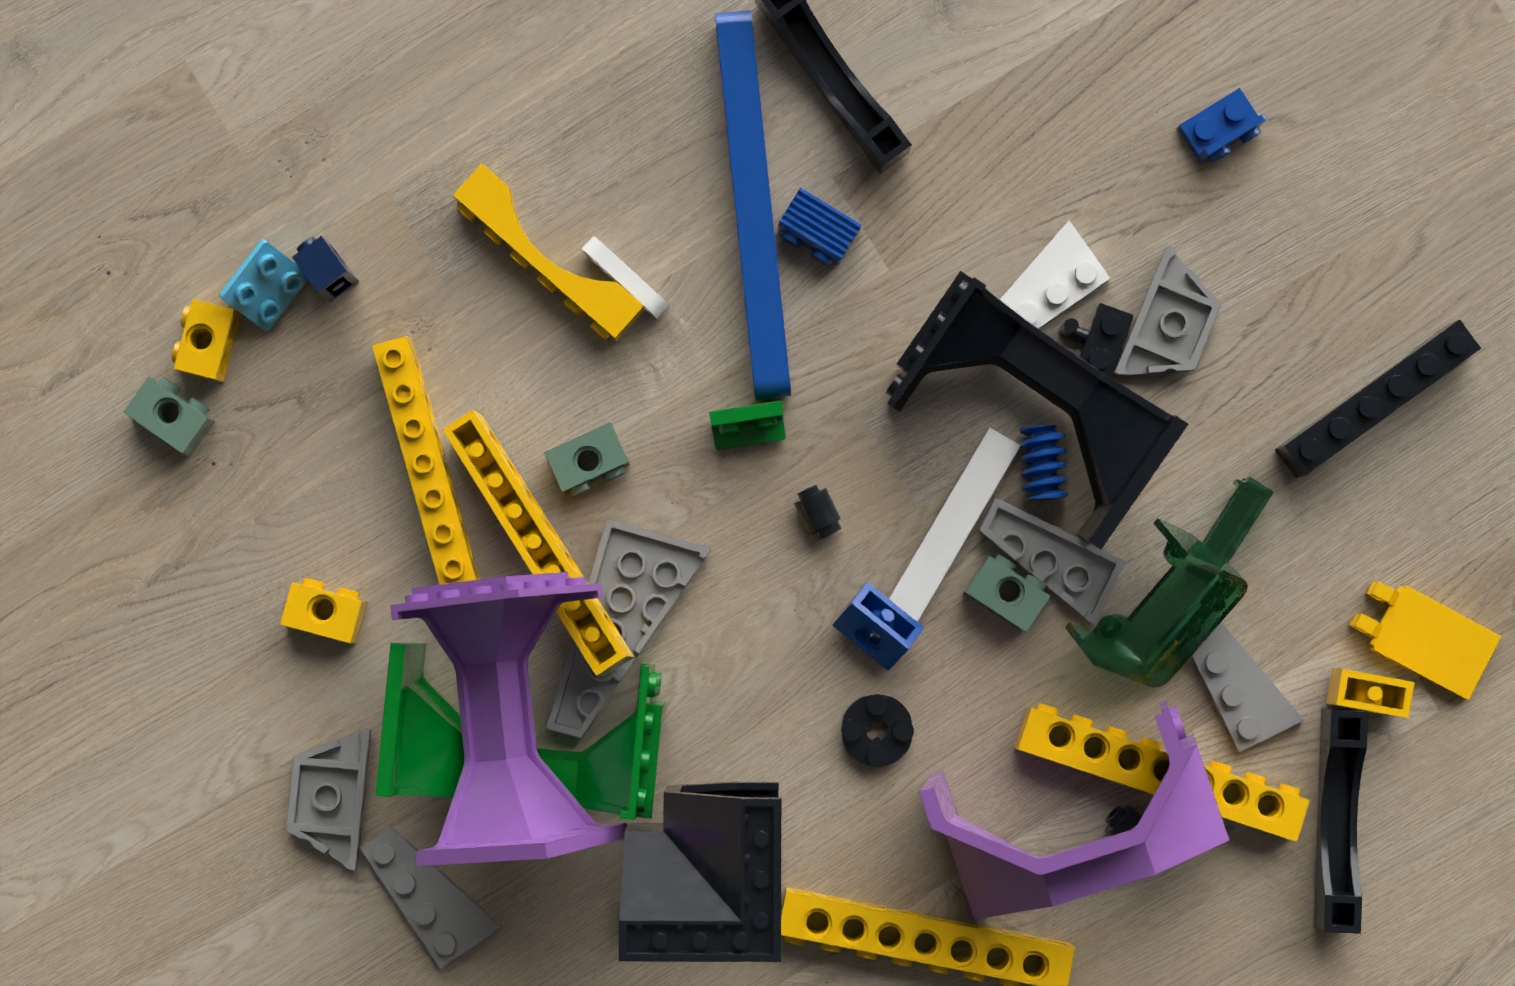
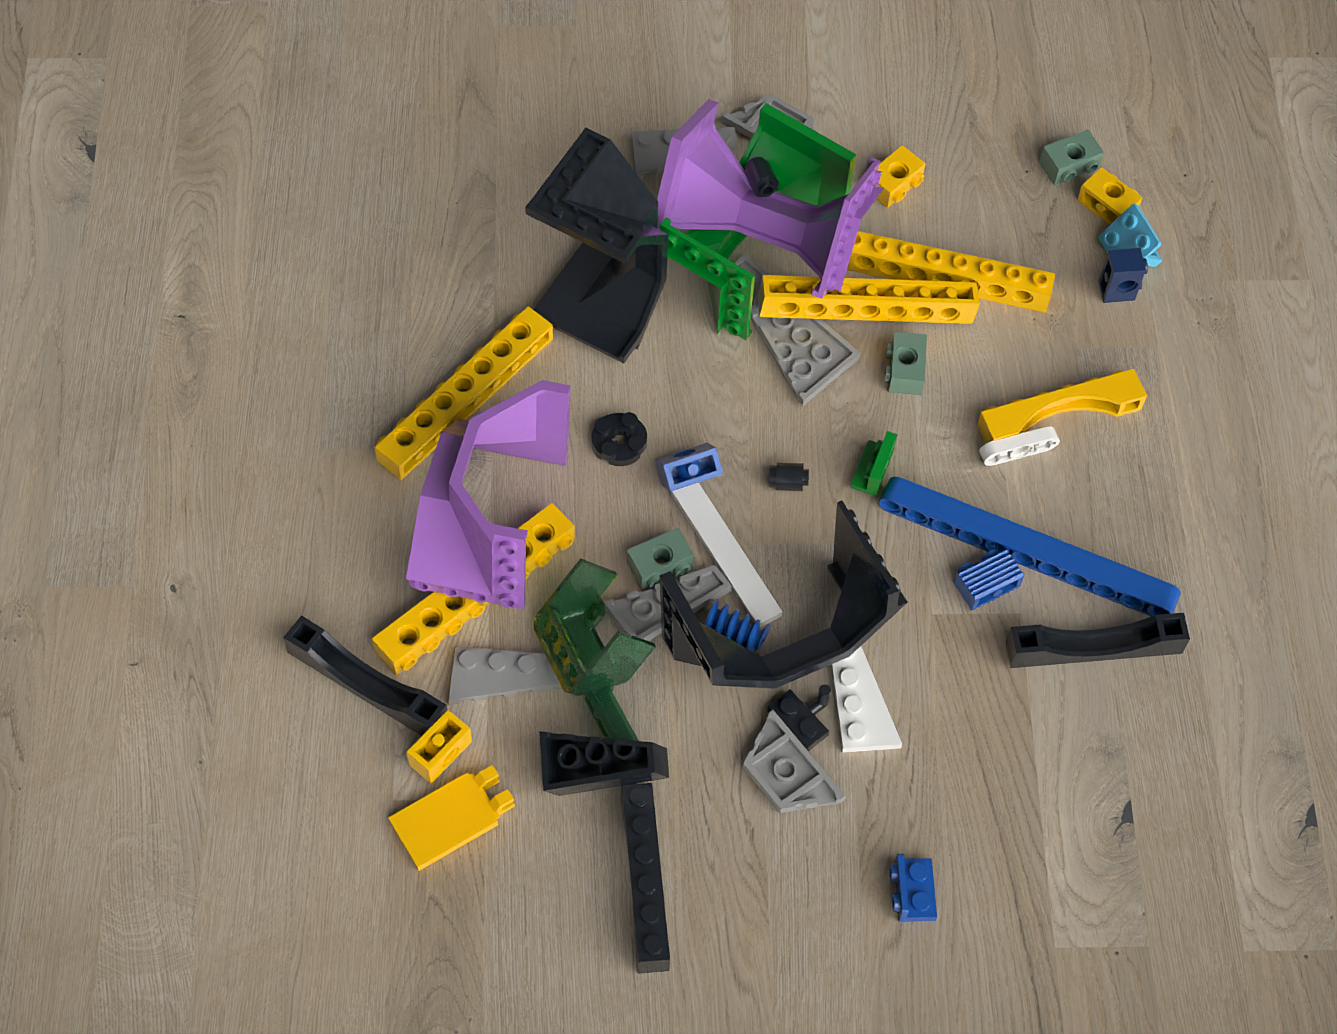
camera: 120 degrees right, 25 degrees down
(463, 751) = (761, 177): none -> black brick
(1299, 511) = (595, 763): none -> black wedge

